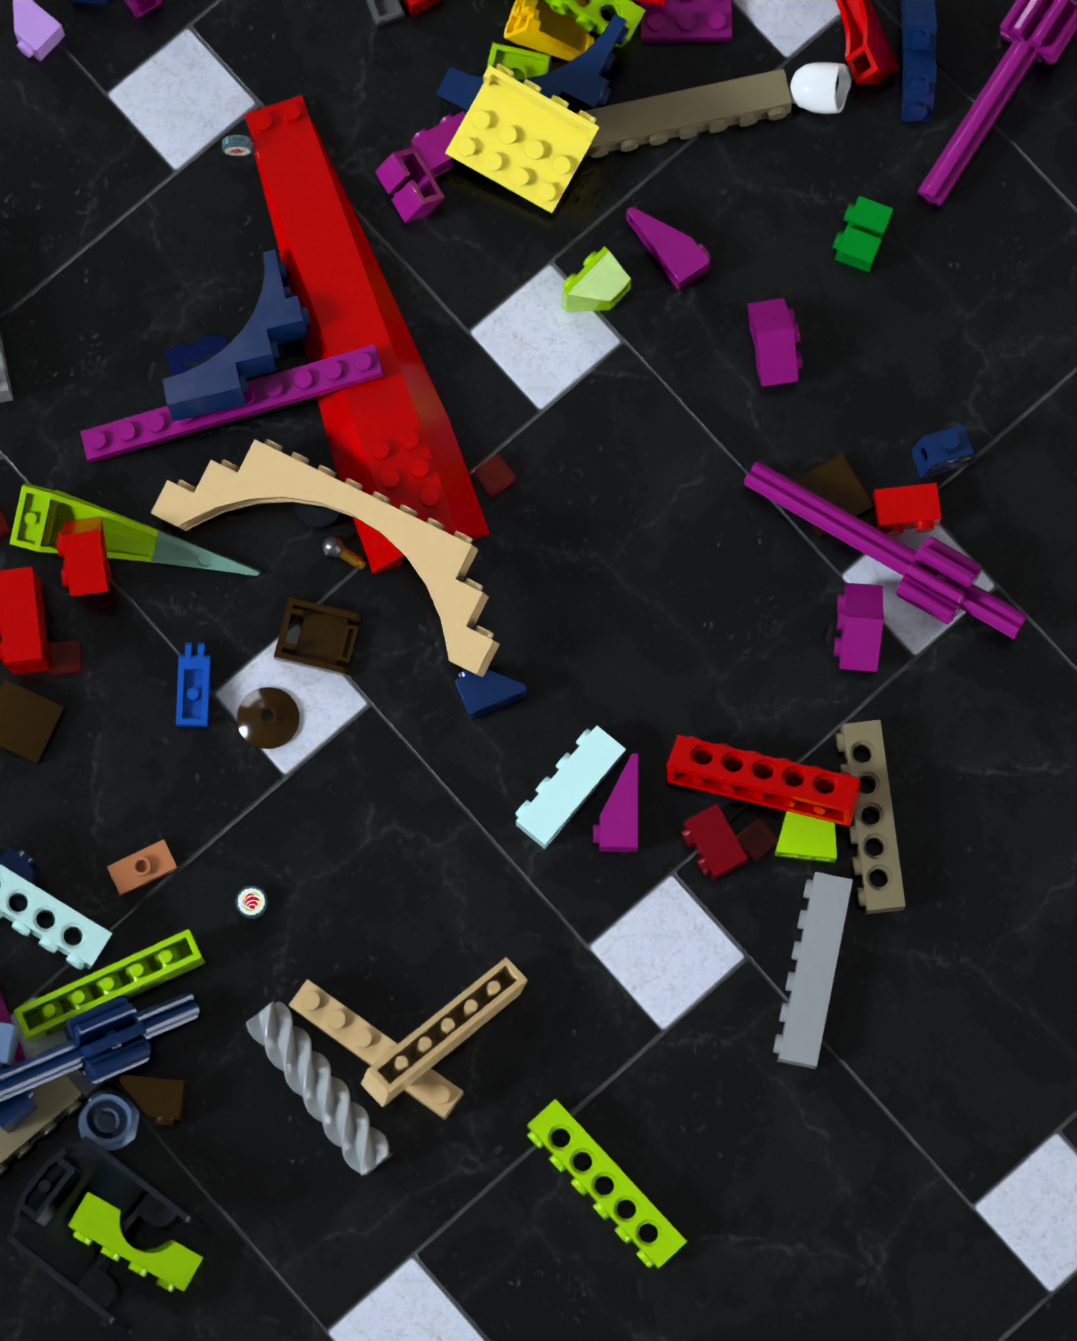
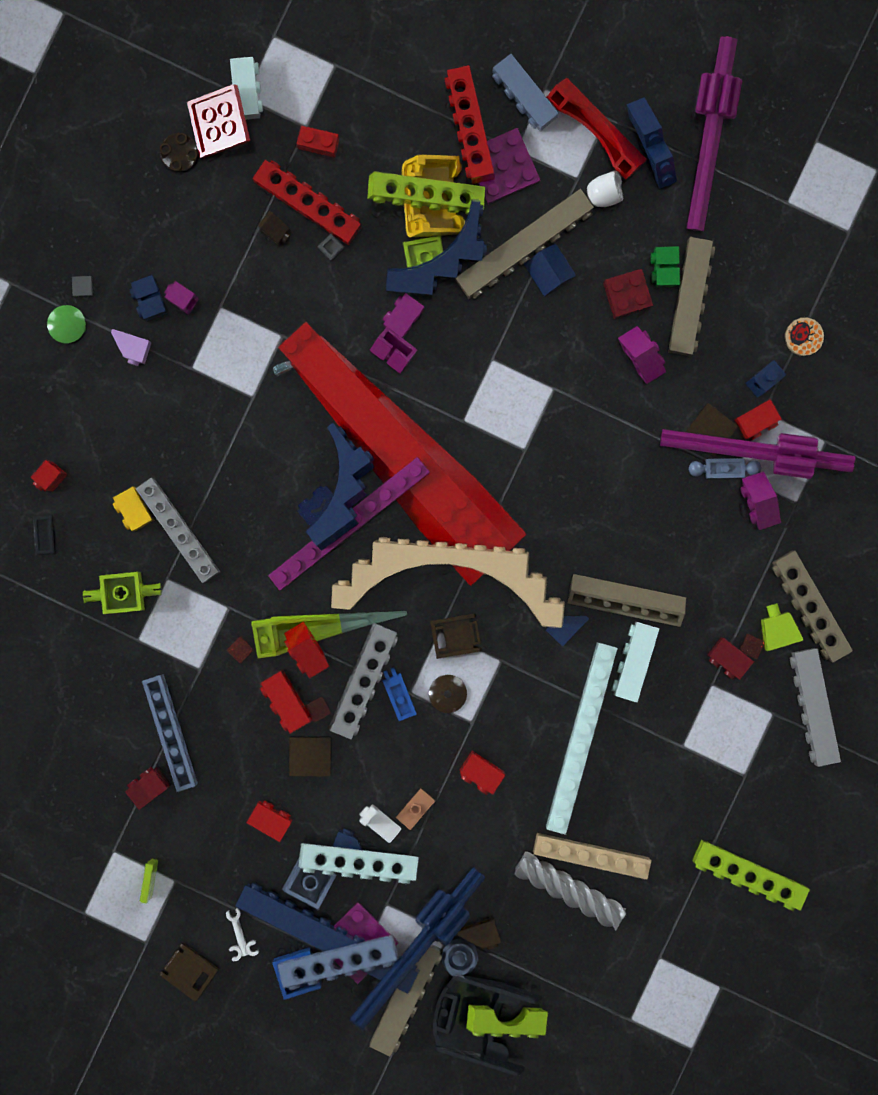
camera: 25 degrees left, 10 degrees up
(78, 862) = (379, 823): none -> white bracket
(122, 979) = (428, 885): lime brick -> none
(203, 582) = (350, 728): none -> light grey brick
(251, 902) = (485, 802): tile -> none
(265, 849) = (481, 772): none -> red brick
(335, 547) = (443, 580): piece -> none
(438, 865) = (581, 738): none -> light aqua brick
(443, 1032) = (628, 834): tan brick -> none
(494, 475) = (515, 499): clear red tile -> none
(522, 138) = (449, 298): light yellow bracket -> none
(595, 688) = (627, 600): none -> dark tan brick
(597, 285) = (529, 363): lime slope -> none
(619, 818) = (670, 666): magenta slope -> none
(672, 249) = (562, 324): magenta slope -> none
(690, 167) = (549, 269): none -> dark blue slope
(773, 792) = (754, 618): red brick -> none
(790, 247) = (628, 294): none -> dark red brick
(826, 558) = (725, 468): none -> sand blue plate
(880, 291) = (690, 296): none -> dark tan brick
(1027, 418) = (804, 336): none -> tile

